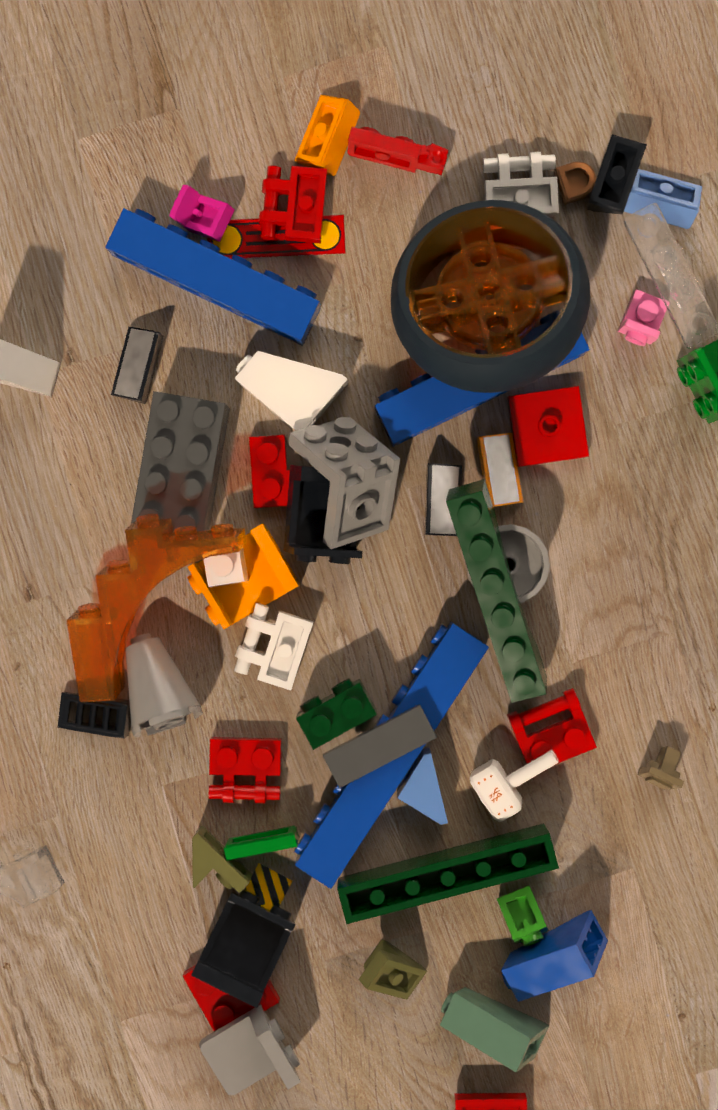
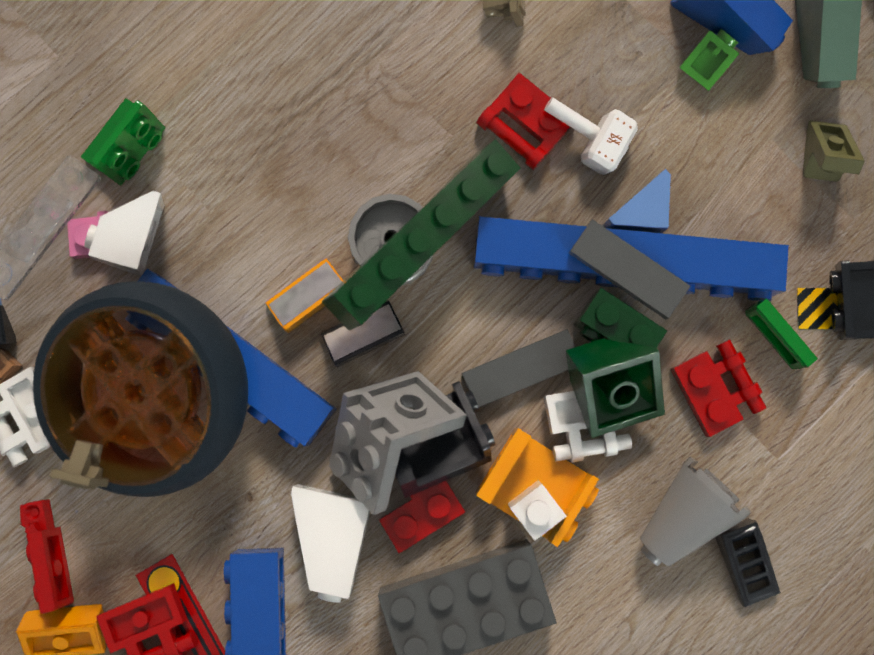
camera: 120 degrees left, 5 degrees down
(101, 630) = (665, 599): clear orange arch -> none
(209, 855) = (821, 377): olive slope -> none
(292, 684) = (616, 384): none -> dark green slope
(345, 616) = (519, 368): none -> dark grey tile
(446, 873) = (713, 146): dark green brick -> none
(447, 219) = (83, 467): none -> dark tan brick
(548, 426) = (242, 272): red plate -> none
(626, 346) = (126, 234): none -> white slope

